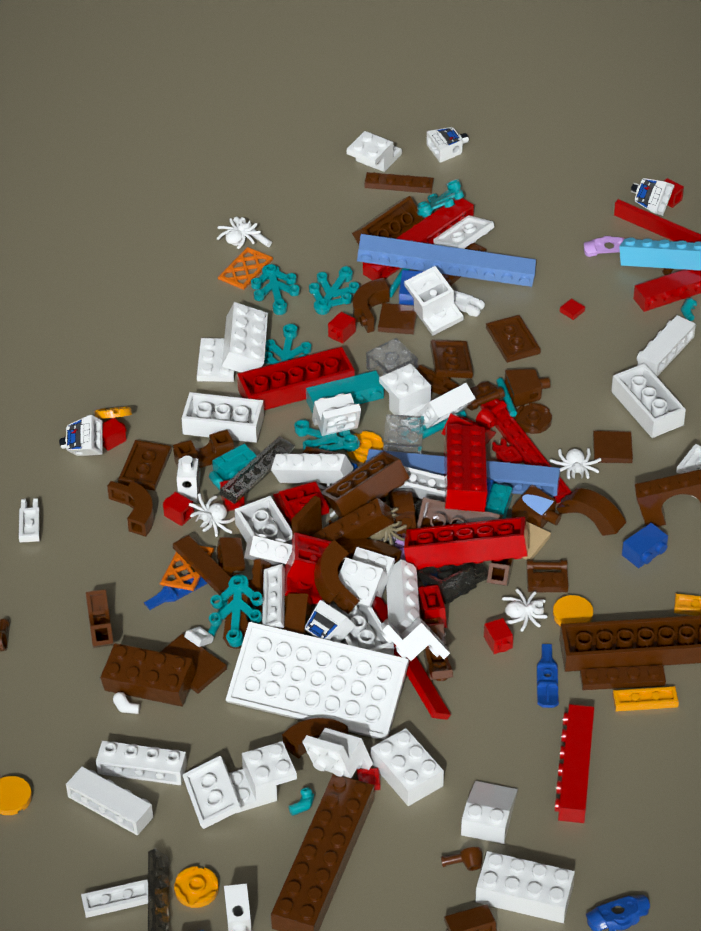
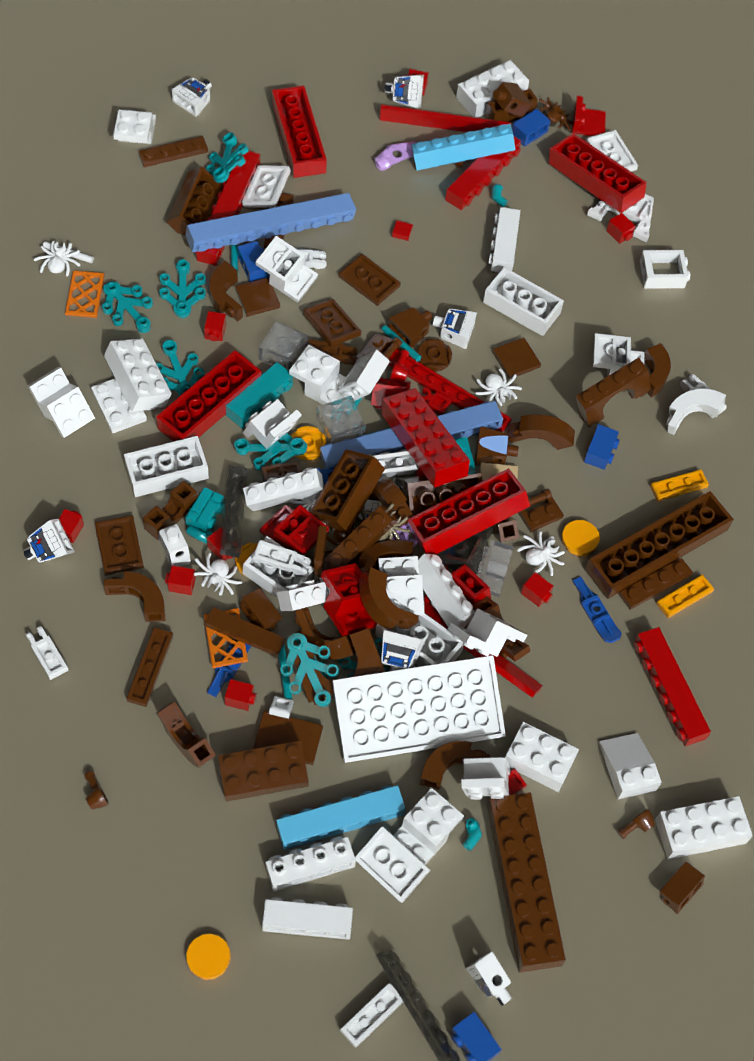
camera: 35 degrees left, 15 degrees up
(107, 563) = (150, 667): none -> reddish brown plate
(113, 412) = (59, 503): light orange tile -> none
(123, 704) = (254, 809): white arm -> none
(165, 338) = (61, 402): none -> white bracket
(168, 612) = (240, 695): none -> red brick
(190, 737) = (340, 817): none -> medium azure brick
(196, 887) = (432, 965): light orange tile -> none
(268, 514) = (280, 558): none -> white hinge
(274, 596) = (336, 642): white tile -> none
(466, 600) = (495, 565): none -> clear brick
(523, 199) = (299, 131): none -> red brick
(570, 401) = (456, 326): none -> white torso

